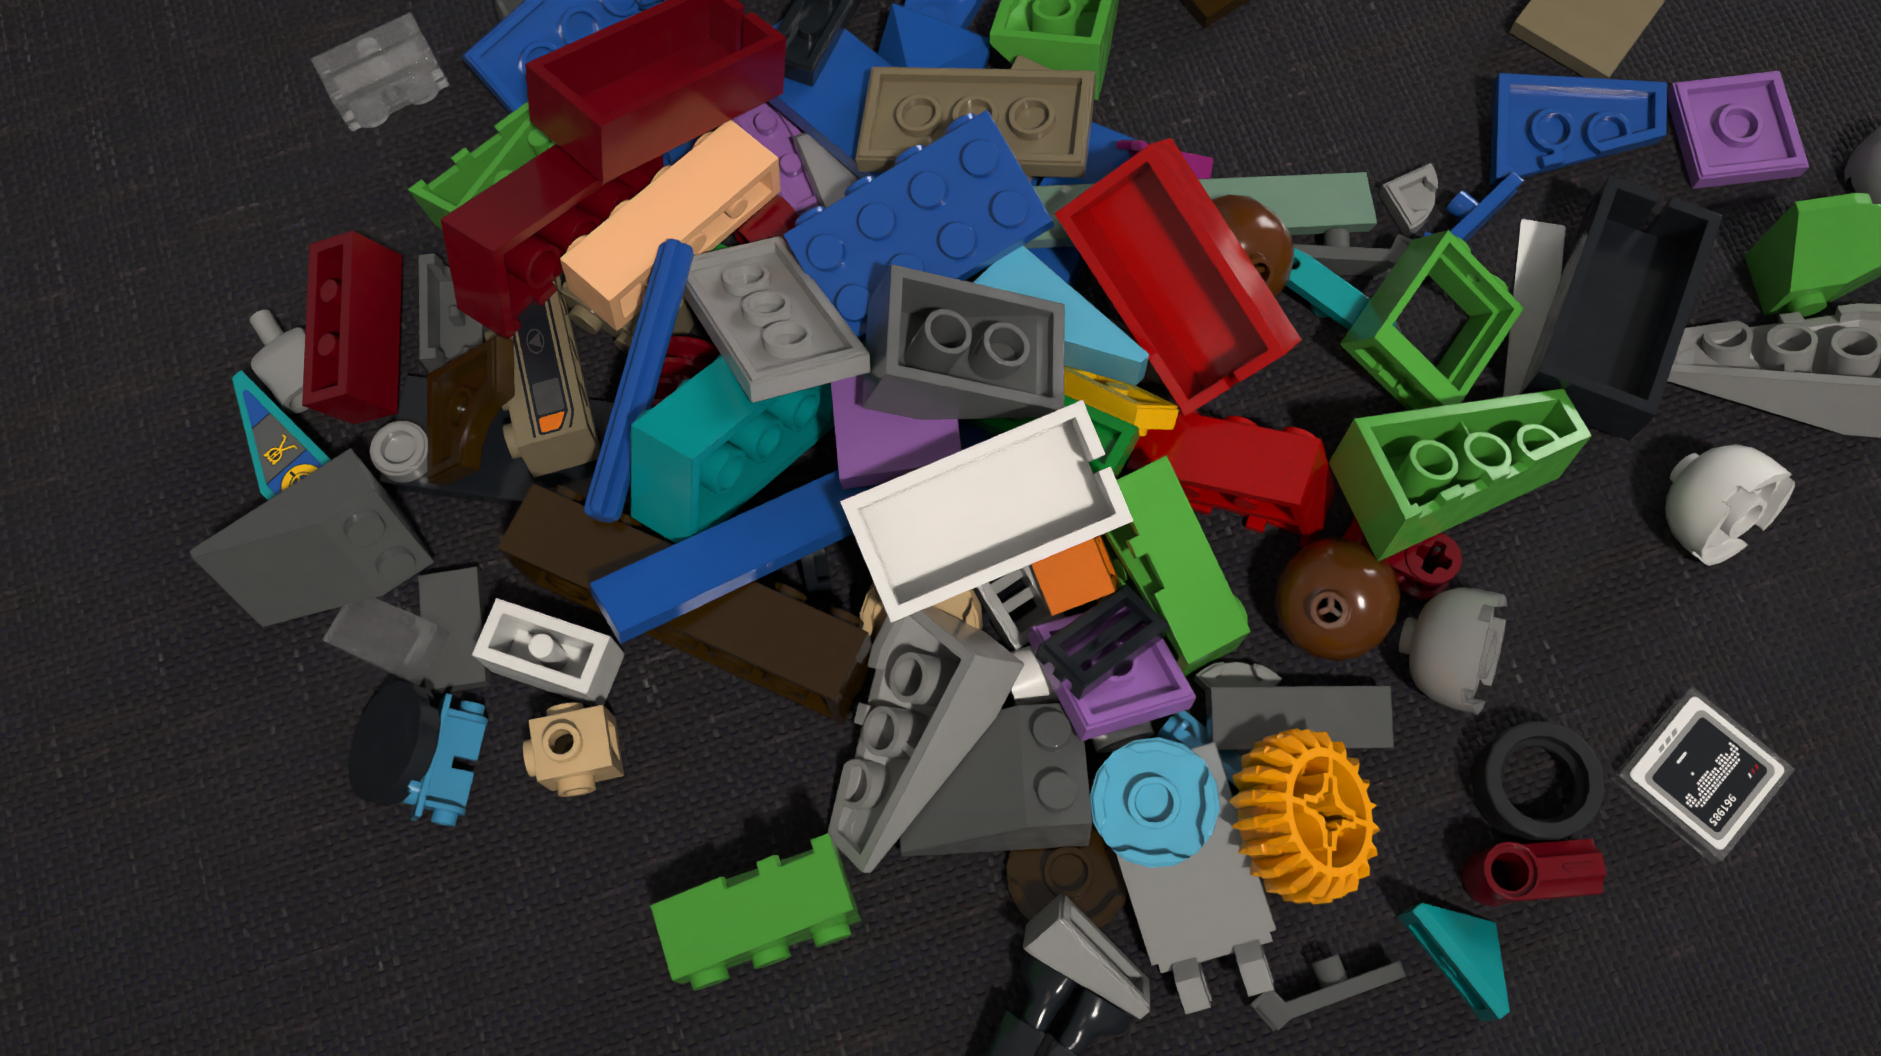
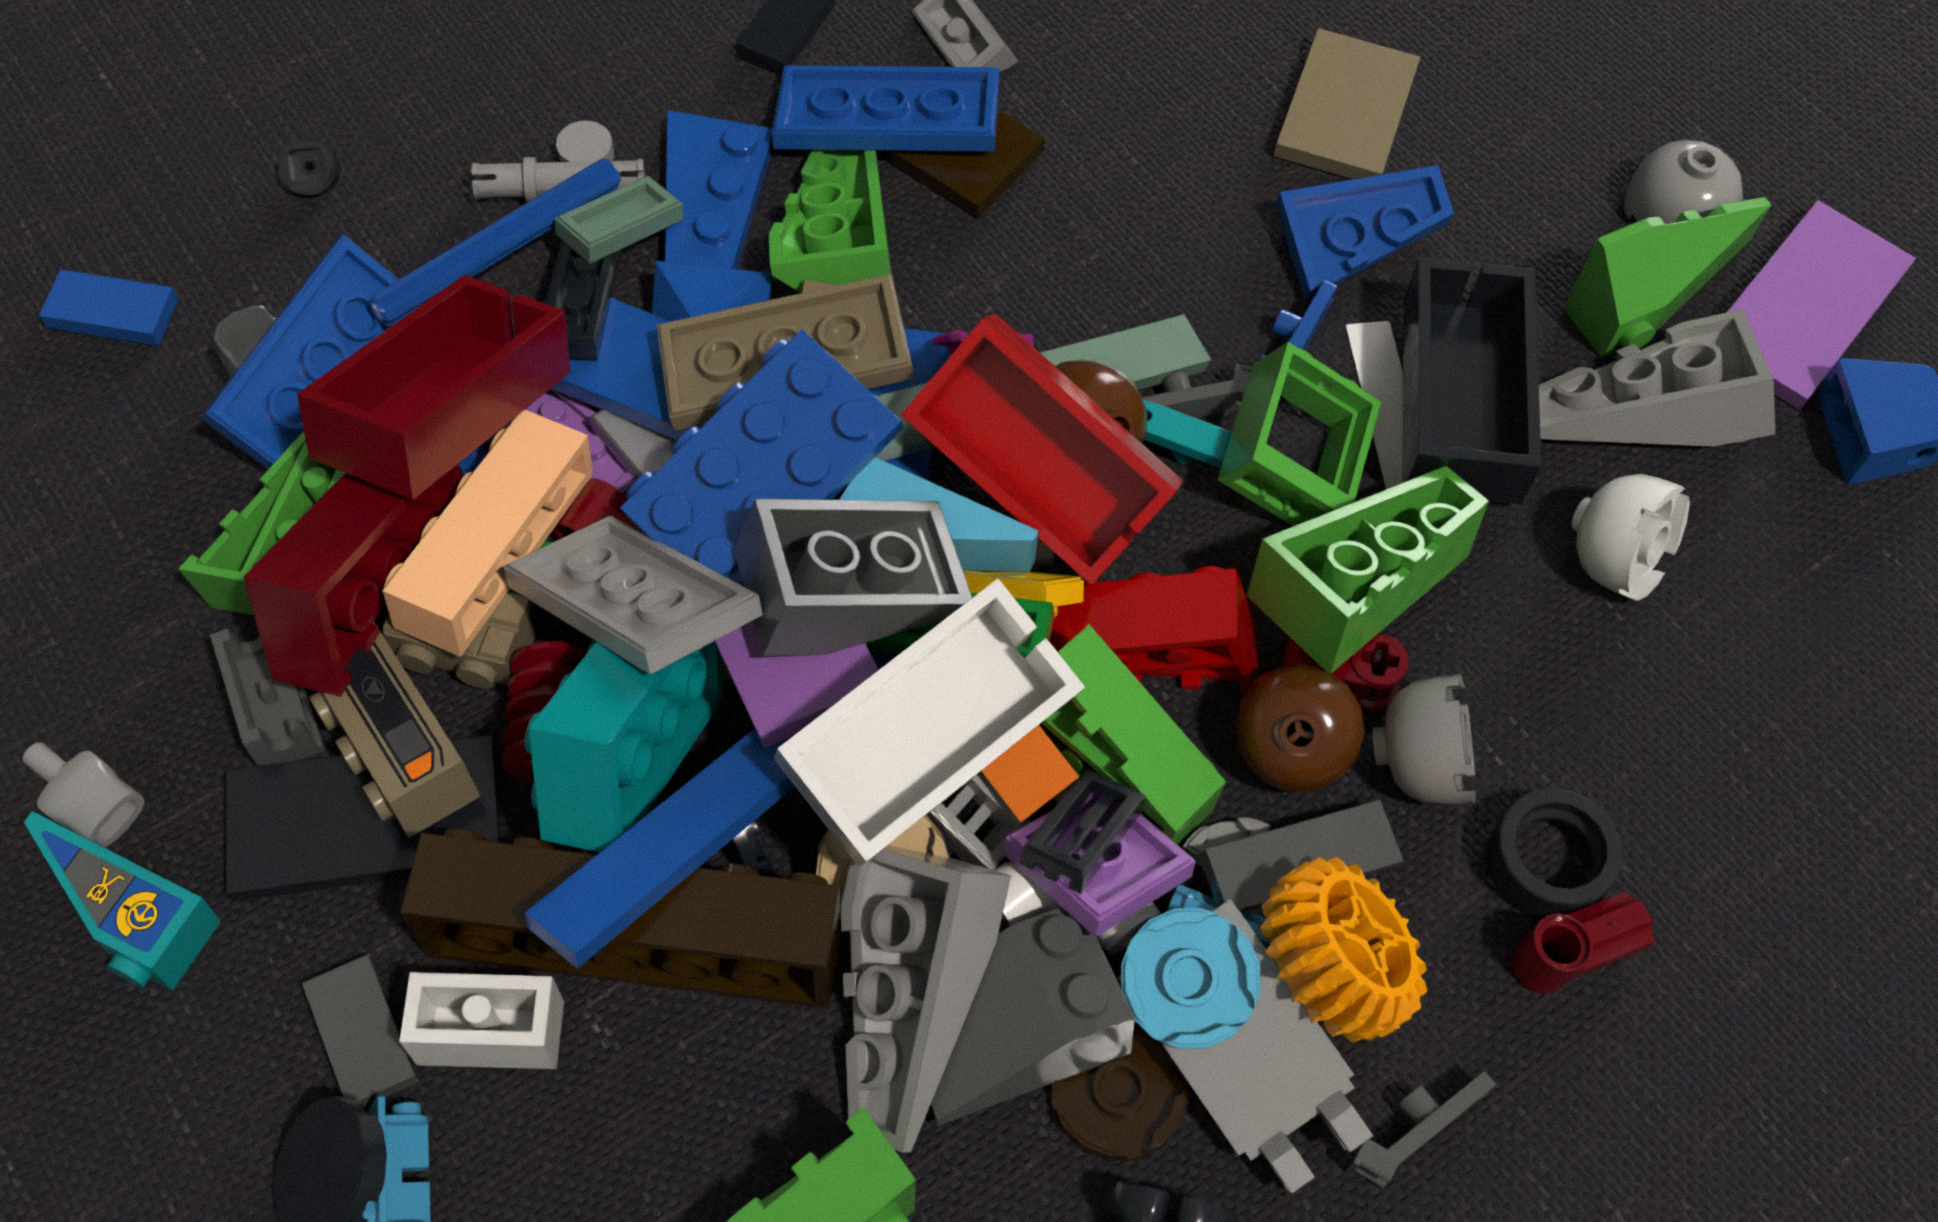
camera: 25 degrees left, 10 degrees down
(315, 546) = (177, 979): dark grey slope -> none
(352, 329) = (152, 735): dark red brick -> none
(380, 73) = (106, 460): clear brick -> none
(387, 638) = (283, 1059): clear tile -> none
(400, 451) = (246, 852): light grey tile -> none
(462, 405) = (307, 781): dark brown tile -> none
(573, 748) = (540, 1117): tan brick -> none
(639, 379) = (510, 696): blue axle -> none
(1081, 951) = (1156, 1159): light grey slope -> none
(1411, 198) = (1234, 329): light grey tile -> none
(1466, 954) = (1542, 1046): teal slope -> none
(1703, 775) = (1704, 802): tile -> none
(1736, 129) = (1514, 195): medium lavender tile -> none

